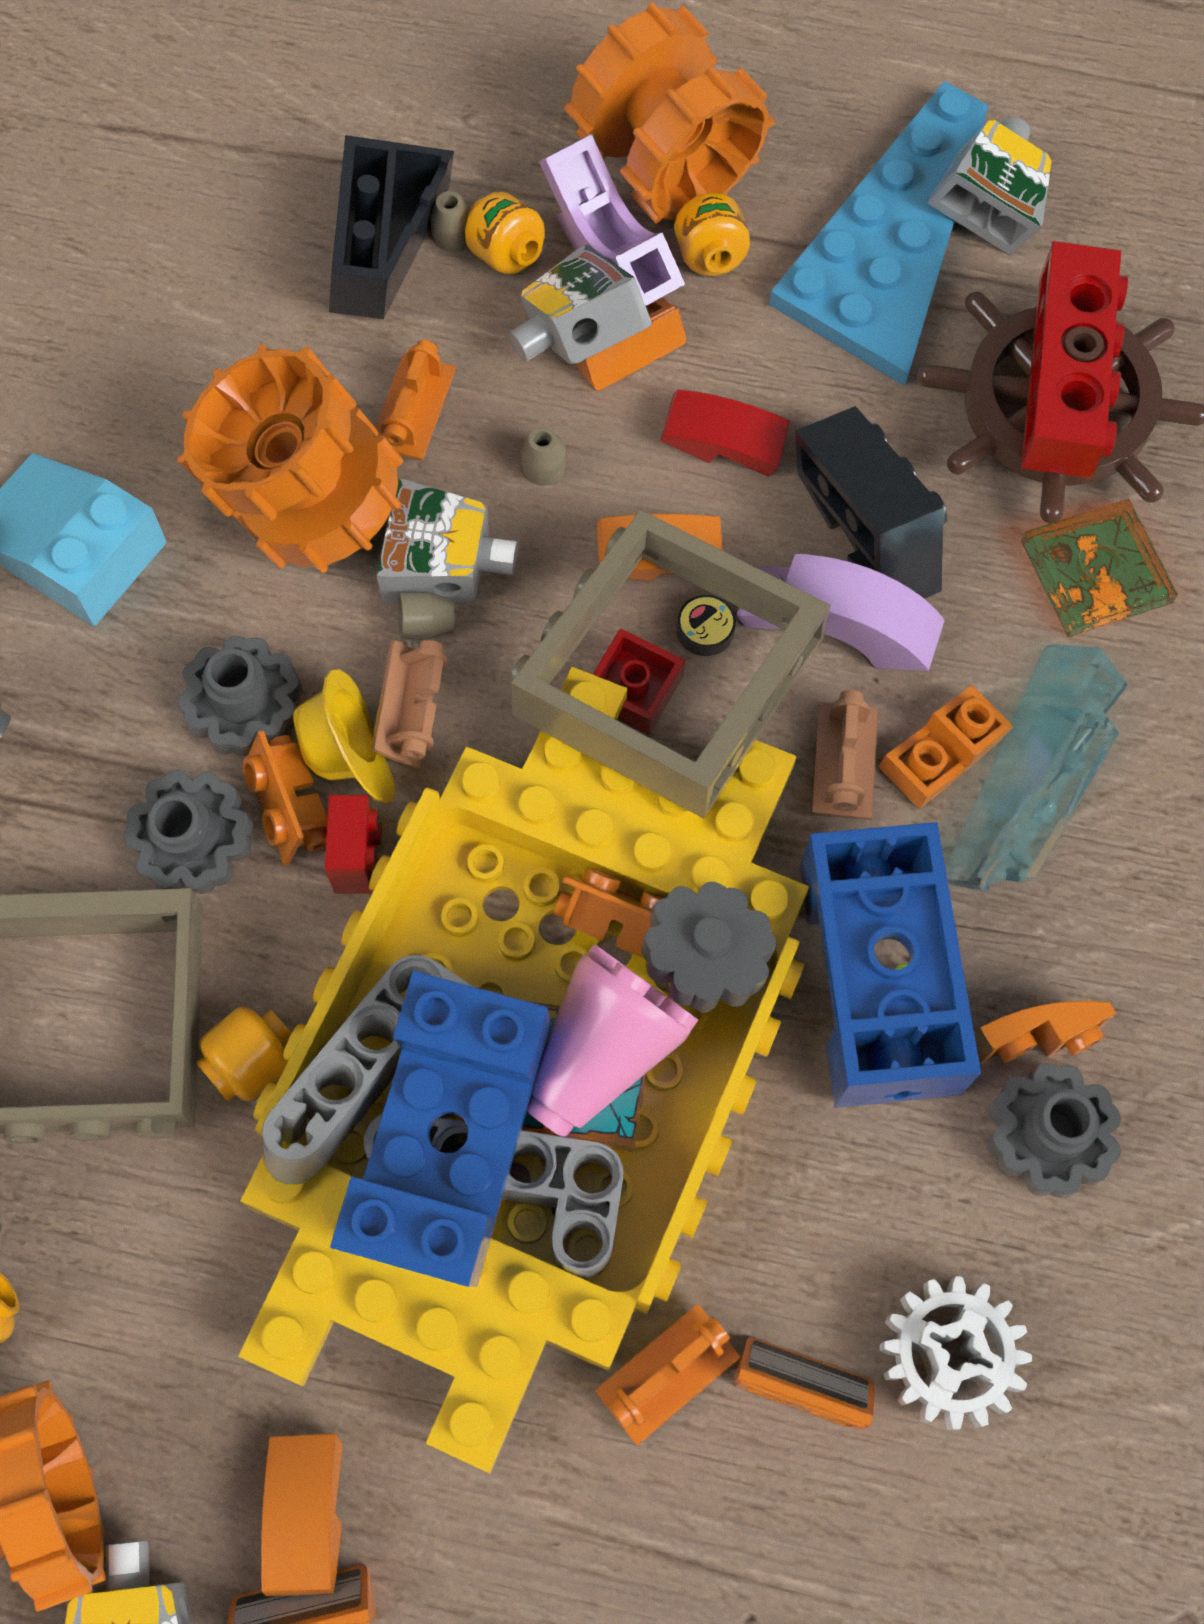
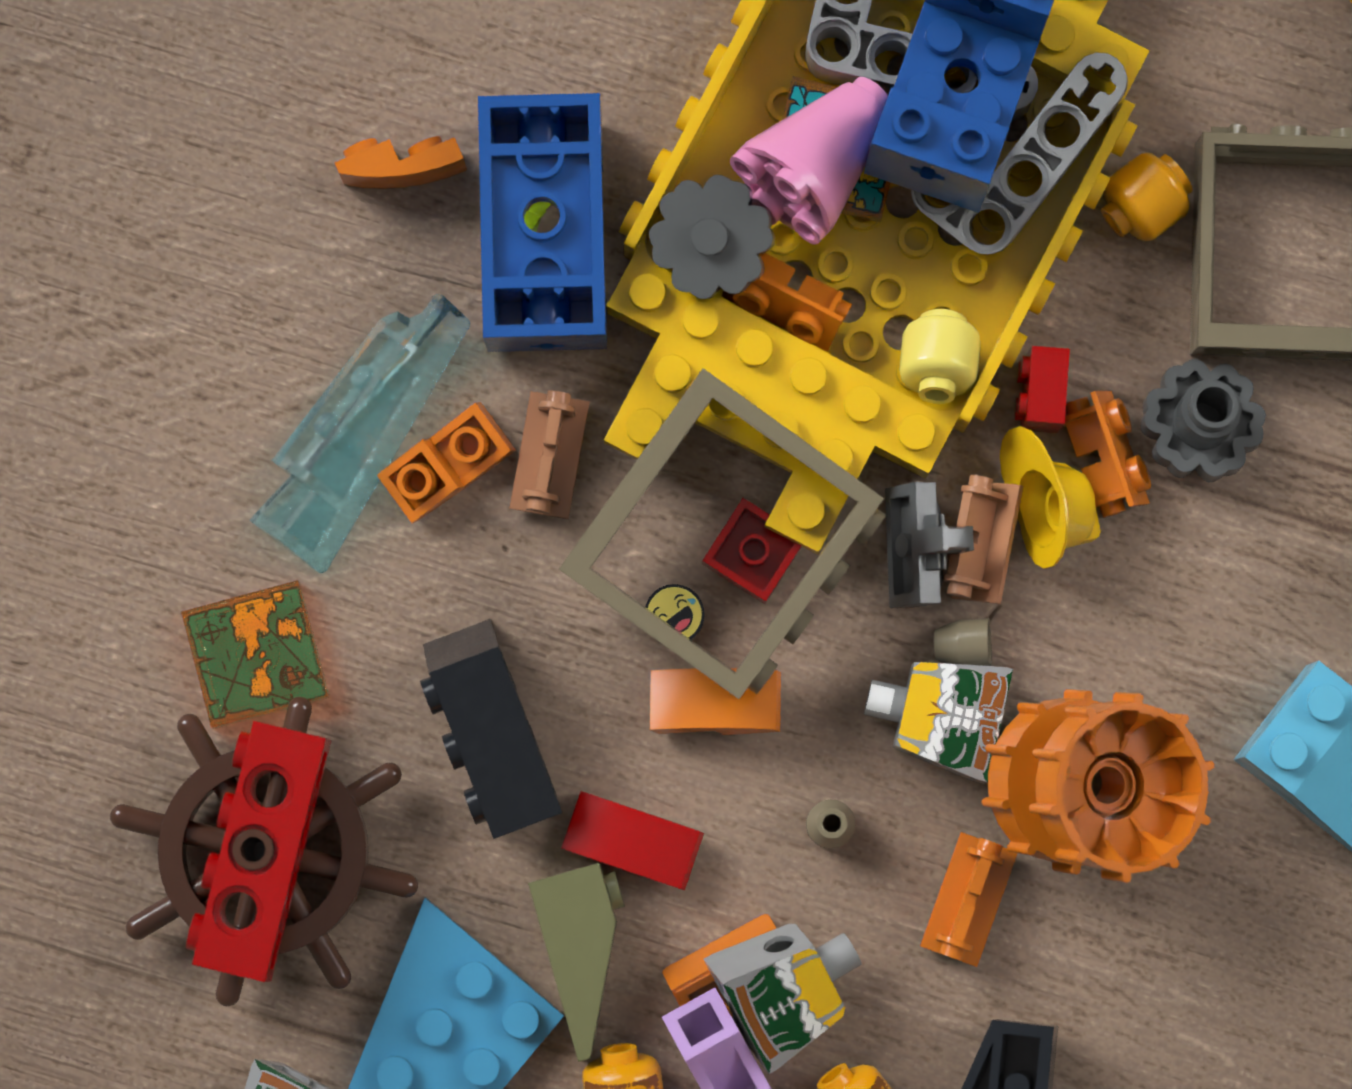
camera: 175 degrees left, 15 degrees up
(239, 694) = (1153, 564): dark grey plant -> none
(459, 855) = (940, 356): none -> light yellow head
(473, 688) = (919, 544): none -> dark grey hinge
(769, 352) = (579, 937): none -> olive slope
(866, 611) = (535, 605): lavender arch -> none
(1054, 1130) = (403, 73): dark grey plant -> none

